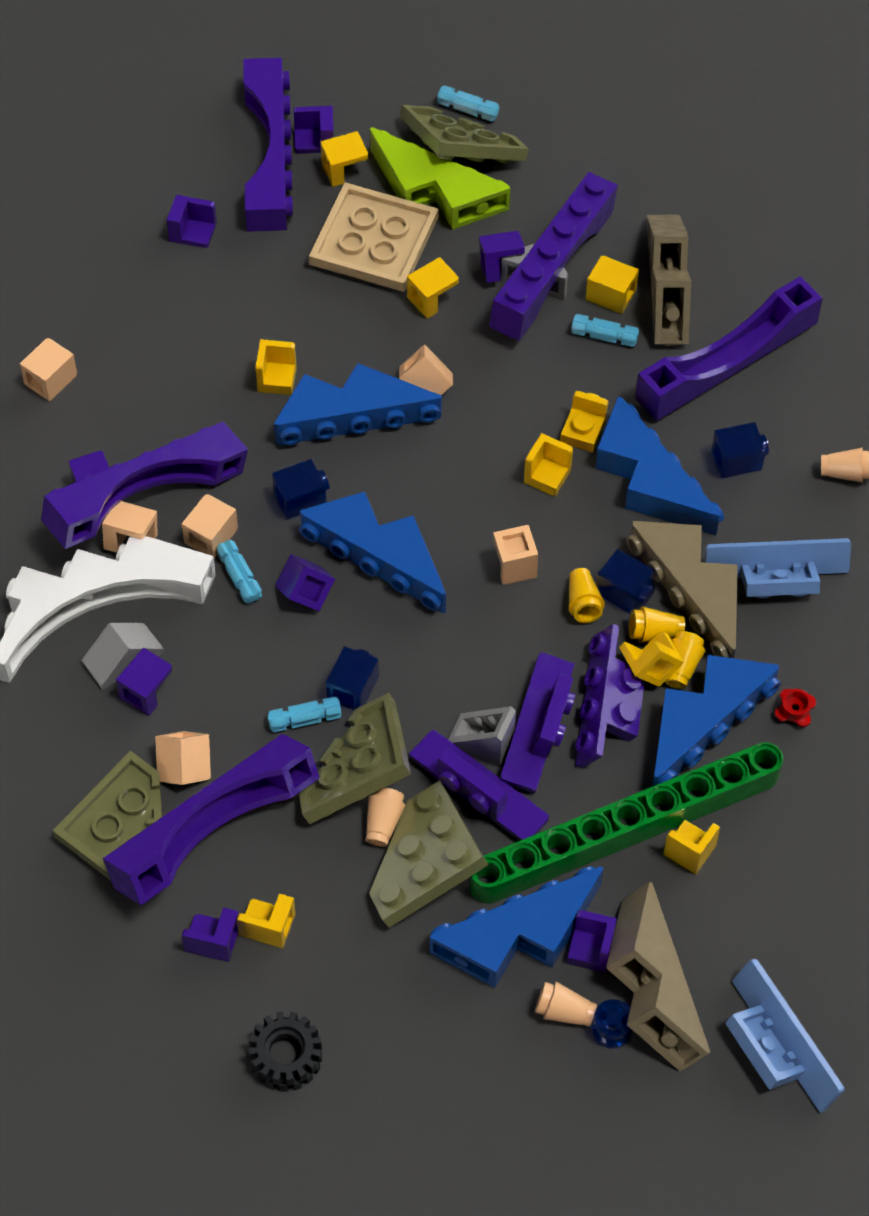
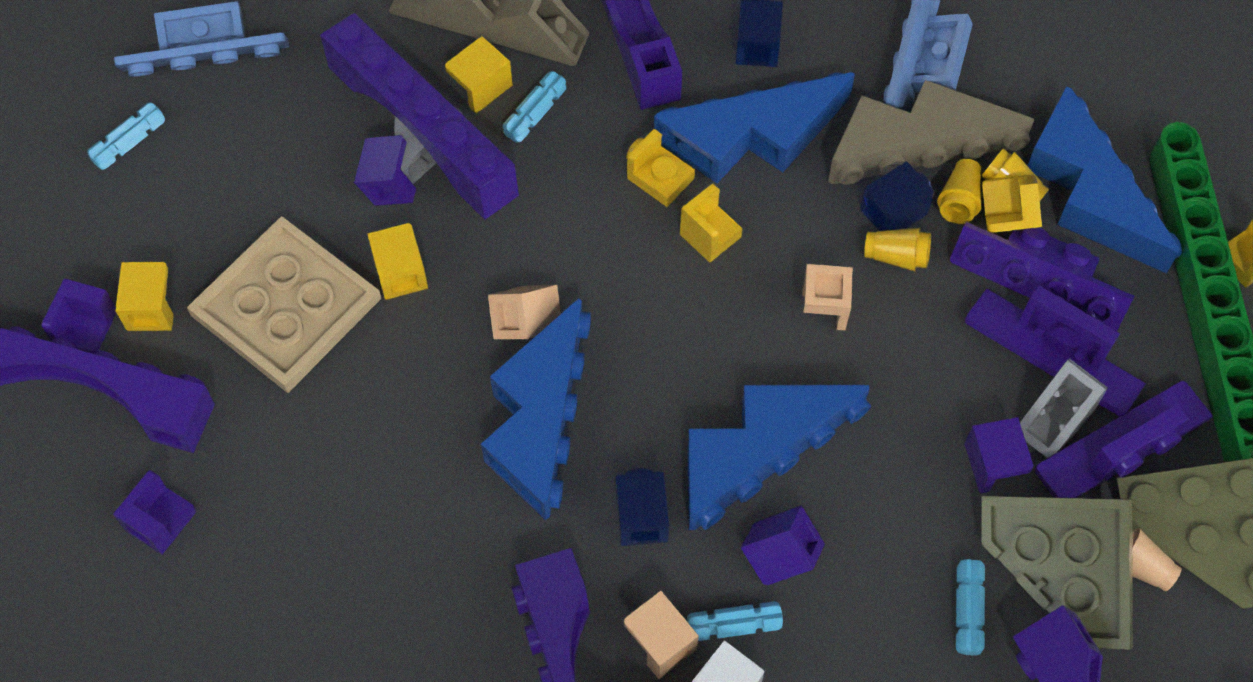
camera: 70 degrees left, 5 degrees up
(276, 367) = (442, 481): yellow panel -> none
(353, 677) = (942, 531): clear blue brick -> none
(425, 178) = (220, 218): lime slope -> none
(431, 694) = (997, 452): none -> dark purple panel
(461, 139) = (181, 159): olive plate -> none
(569, 112) = (200, 35): none -> medium blue bracket
(797, 698) = (1107, 90): red plate -> none

